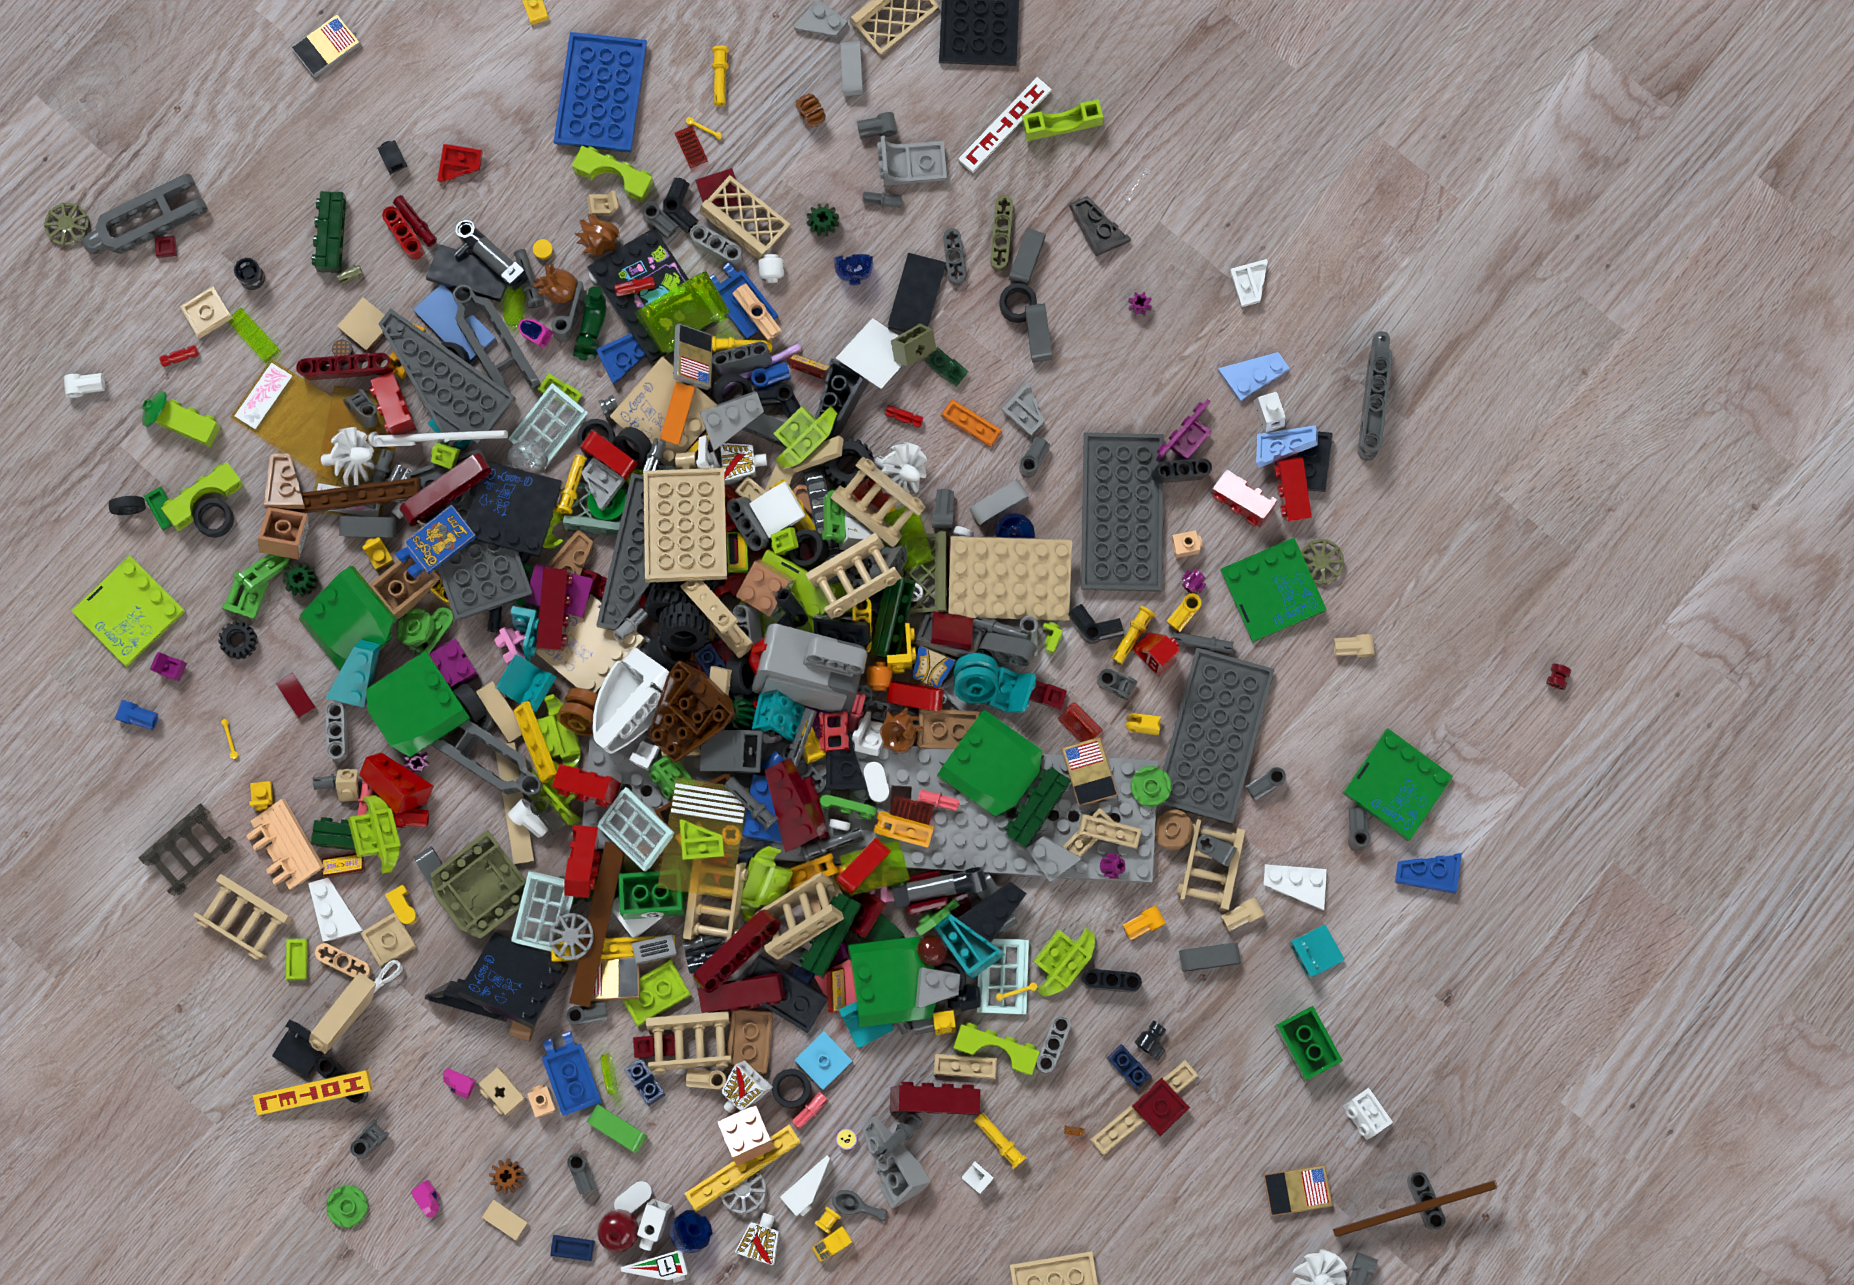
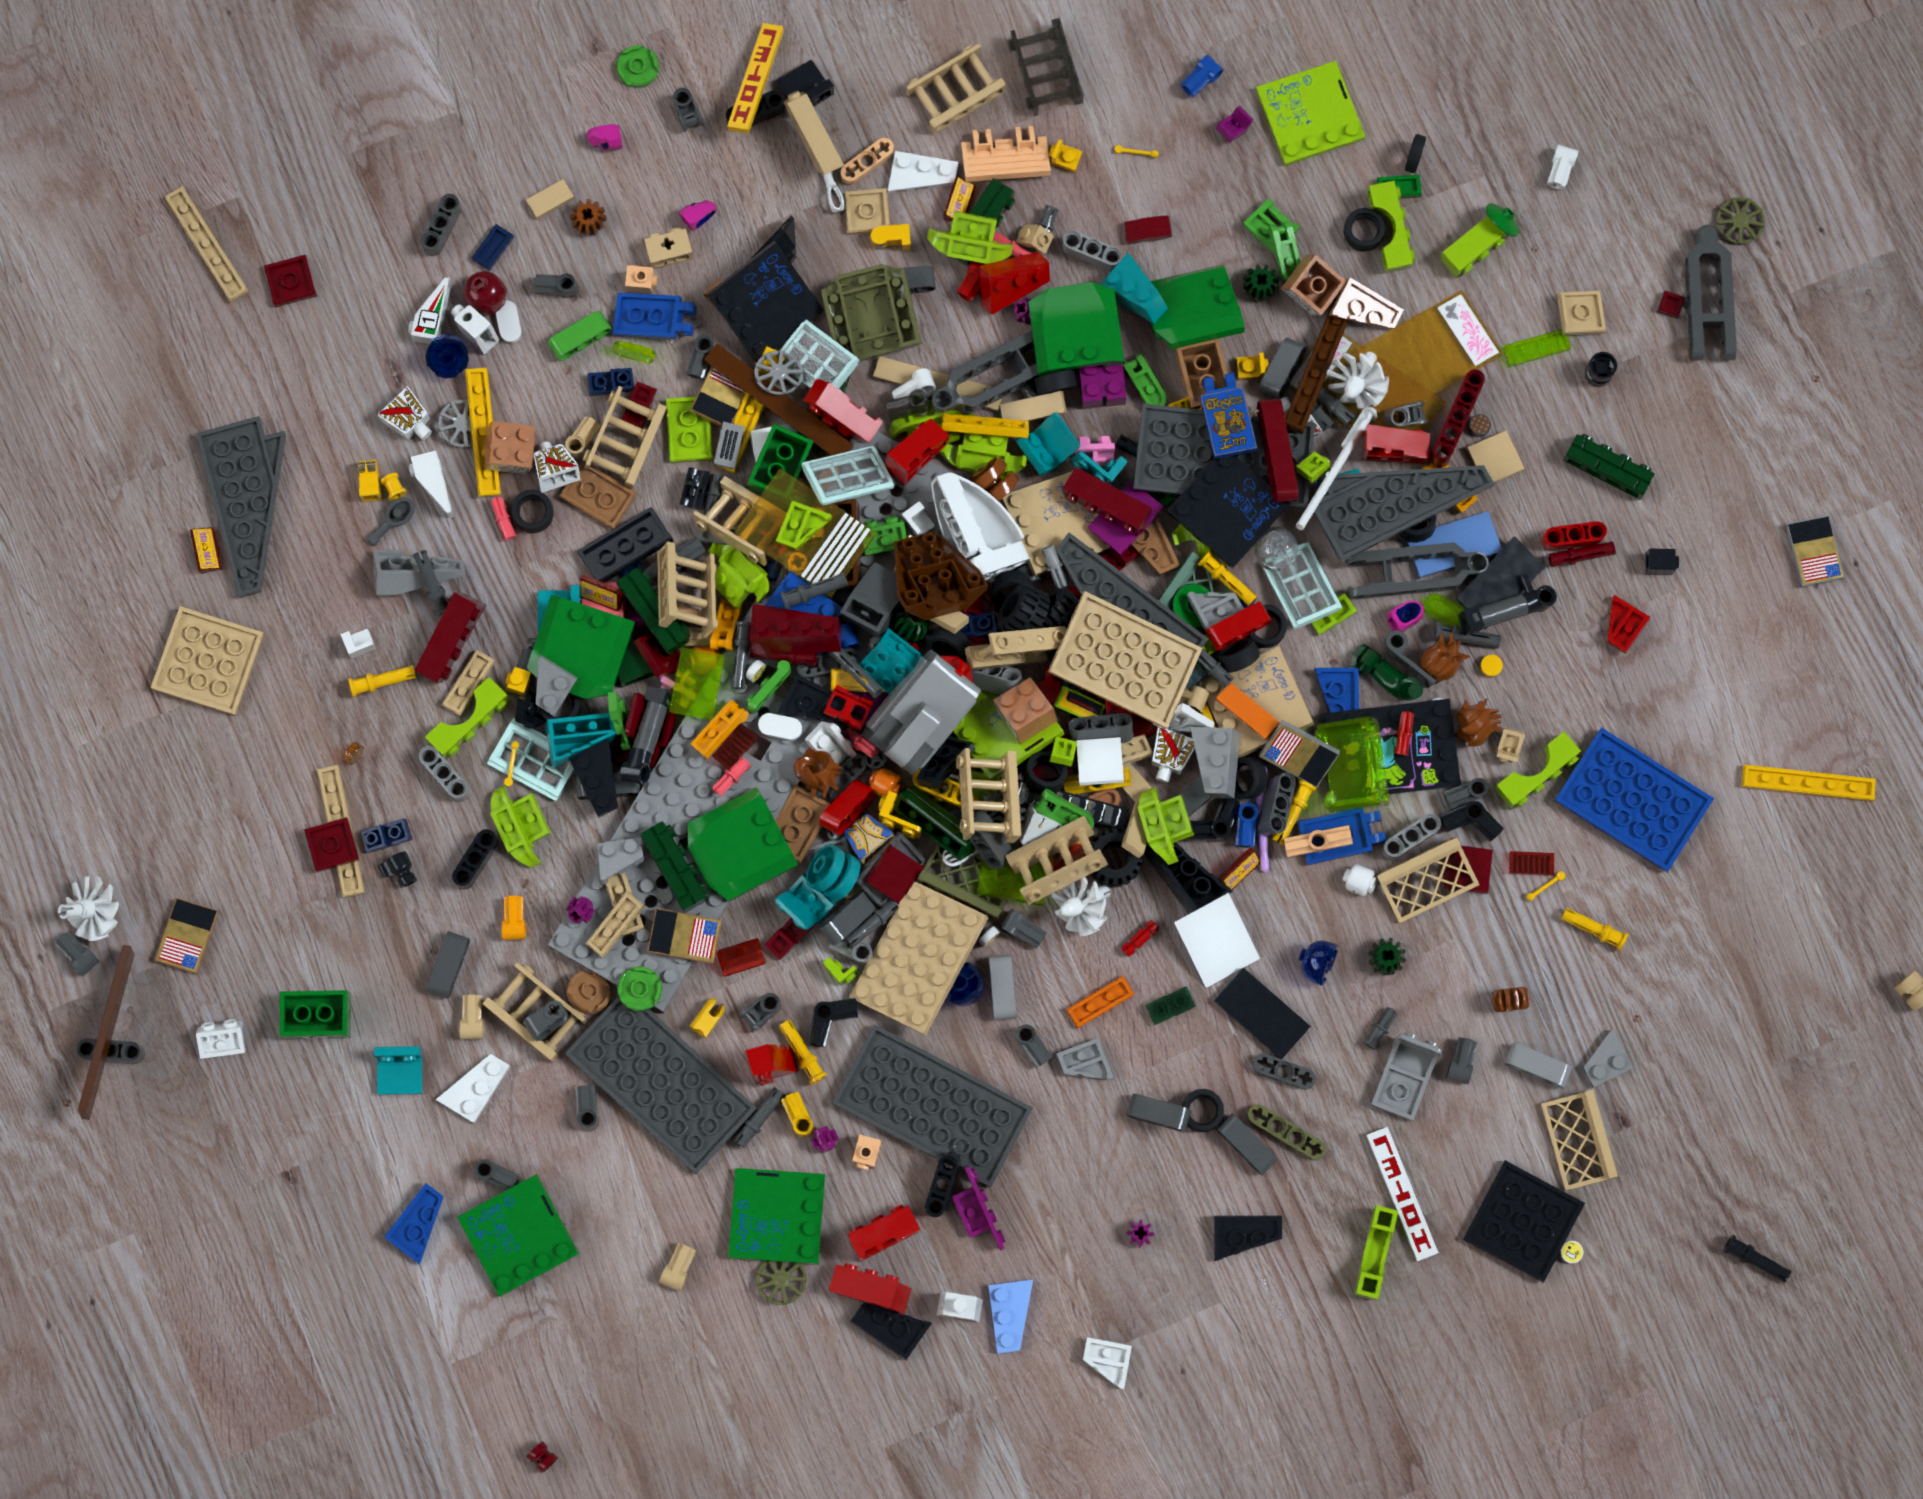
camera: 110 degrees right, 0 degrees up
(179, 355) = (1548, 268): red axle -> none
(246, 648) = (1229, 187): black tyre -> none
(296, 959) = (891, 121): lime tile -> none
(350, 274) = (1554, 467): olive pin -> none
(415, 627) = (1157, 367): bright green tile -> none
(608, 406) = (1292, 653): dark grey wheel -> none
(736, 951) = (683, 516): dark red beam -> none
(743, 992) = (644, 505): dark red brick -> none
(794, 610) = (987, 725): black piece -> none
(823, 1060) = (543, 554): medium azure plate -> none
(846, 1139) = (459, 540): light yellow tile -> none
(863, 865) = (702, 671): red beam -> none
(913, 345) = (1206, 979): olive brick -> none
(932, 950) = (589, 699): clear red hair -> none
(1284, 443) = (918, 1302): light blue wing -> none
(1376, 377) = (895, 1404): dark grey piece -> none

